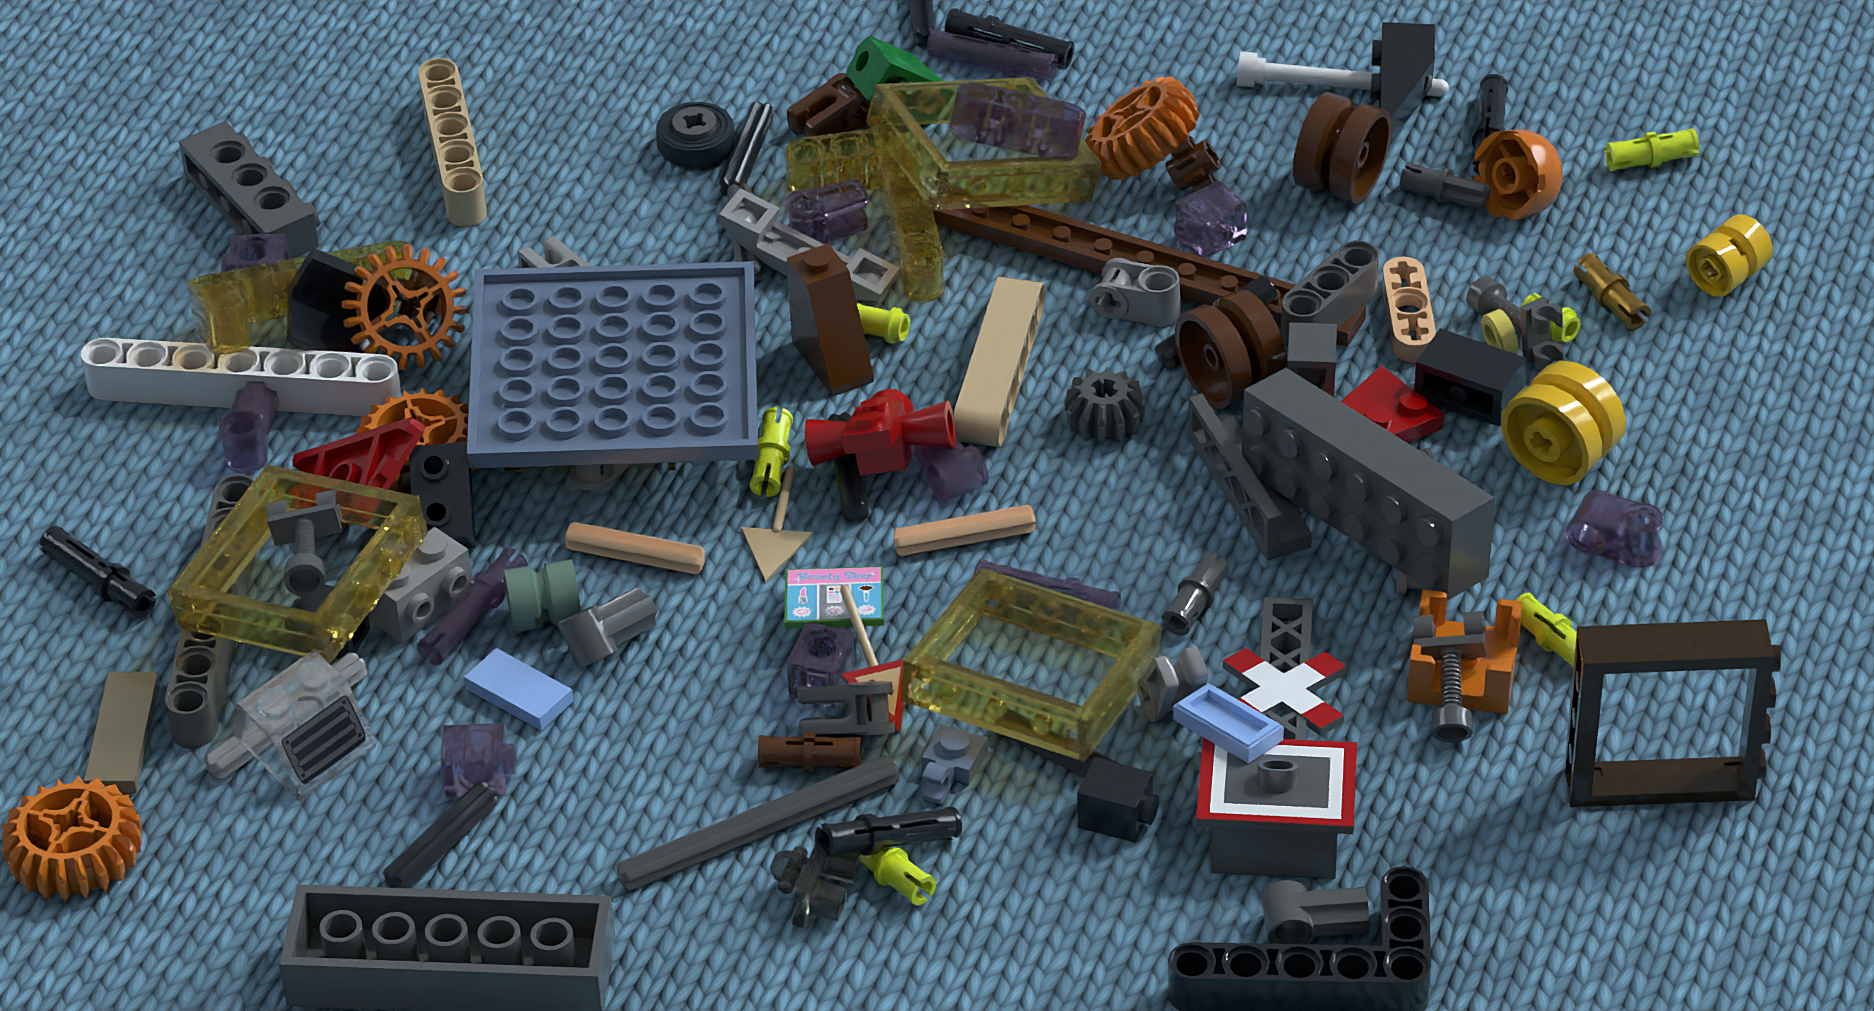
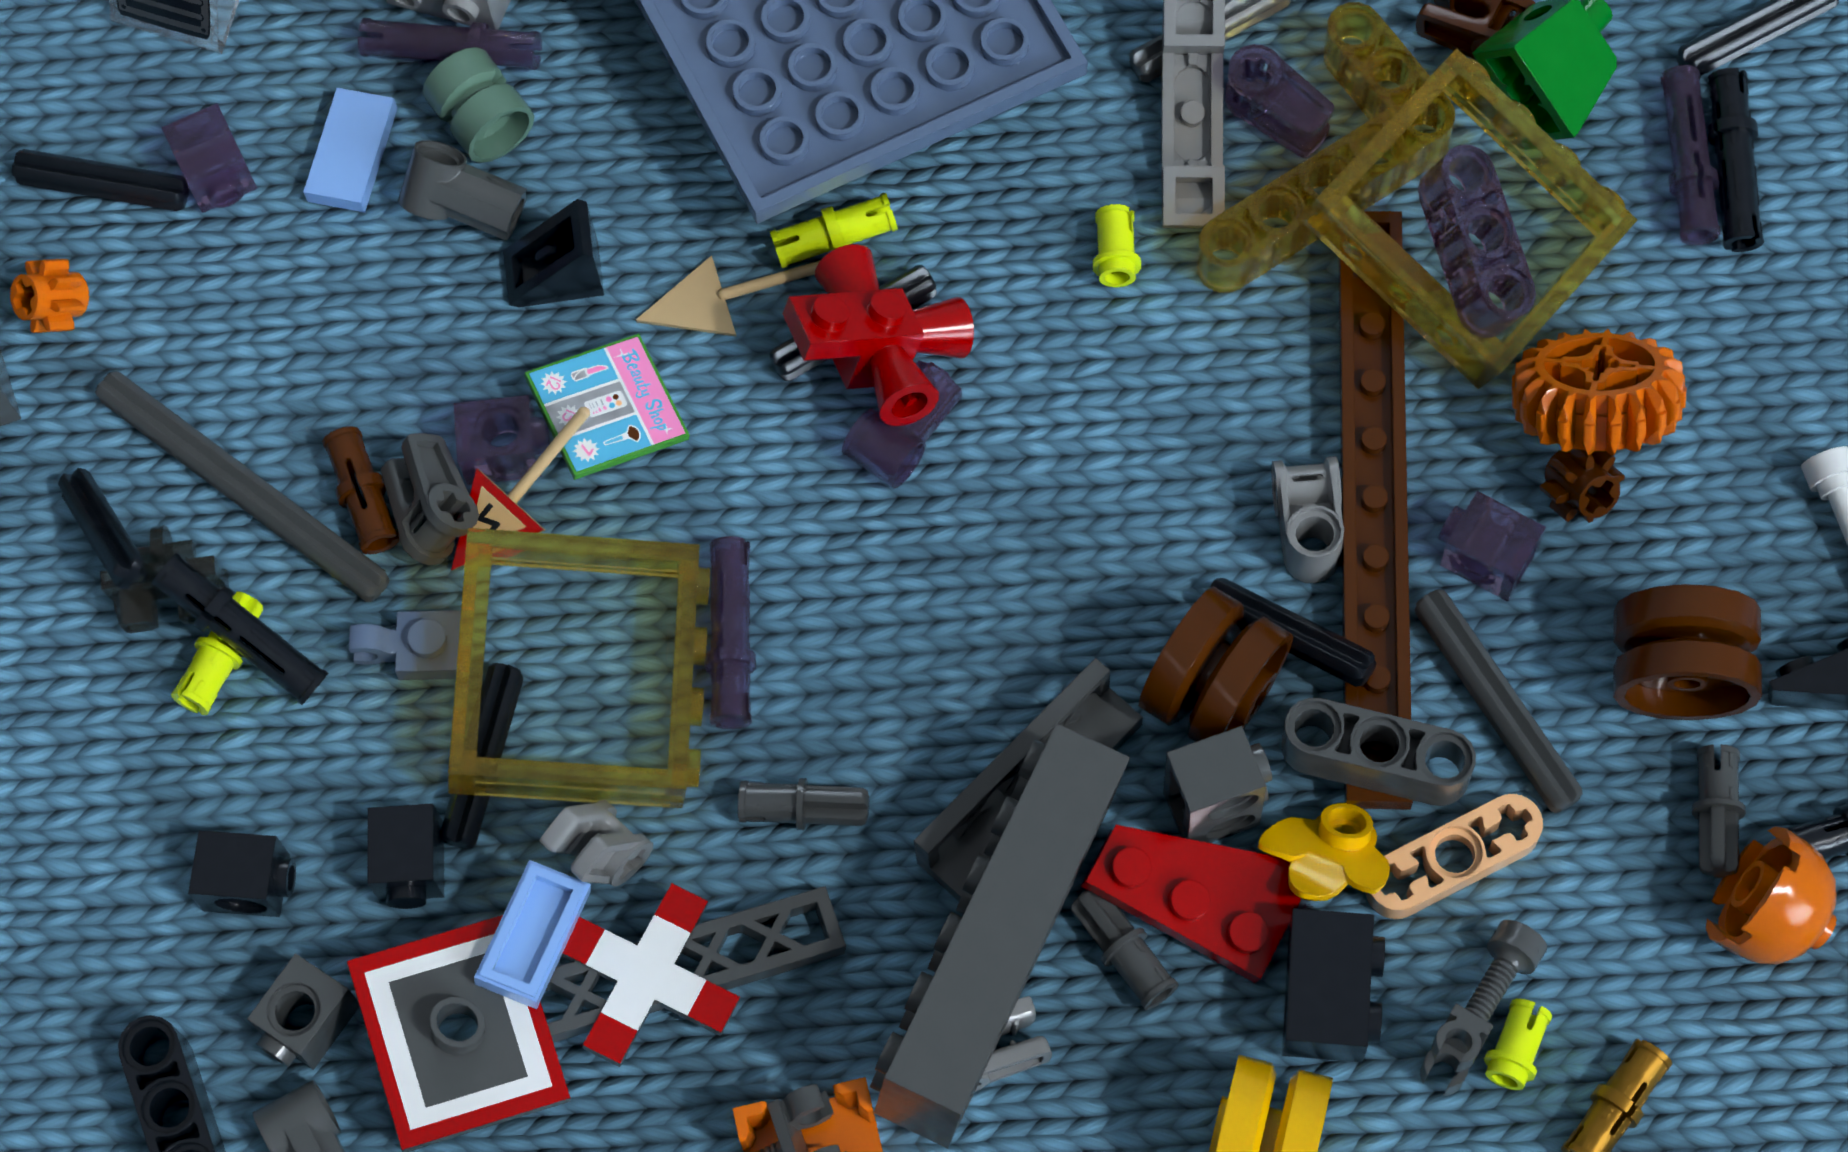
camera: 70 degrees right, 25 degrees up
(520, 868) = (49, 295): none -> orange gear
(635, 548) = (618, 162): light nougat axle -> none
(698, 589) = (555, 260): none -> black slope
(756, 886) = (102, 528): none -> black axle
(827, 320) = (1048, 190): reddish brown slope -> none
(964, 530) = (801, 497): light nougat axle -> none
(999, 361) = (1106, 409): tan beam -> none
(1078, 895) = (241, 873): none -> black brick
(1104, 405) = (1057, 553): dark grey gear -> none
(1206, 887) = (295, 986): none -> dark grey brick
(1304, 257) = (1498, 701): none -> dark grey axle
(1379, 351) = (1328, 852): none -> yellow plate
(1499, 331) = (1445, 989): light yellow tile -> none

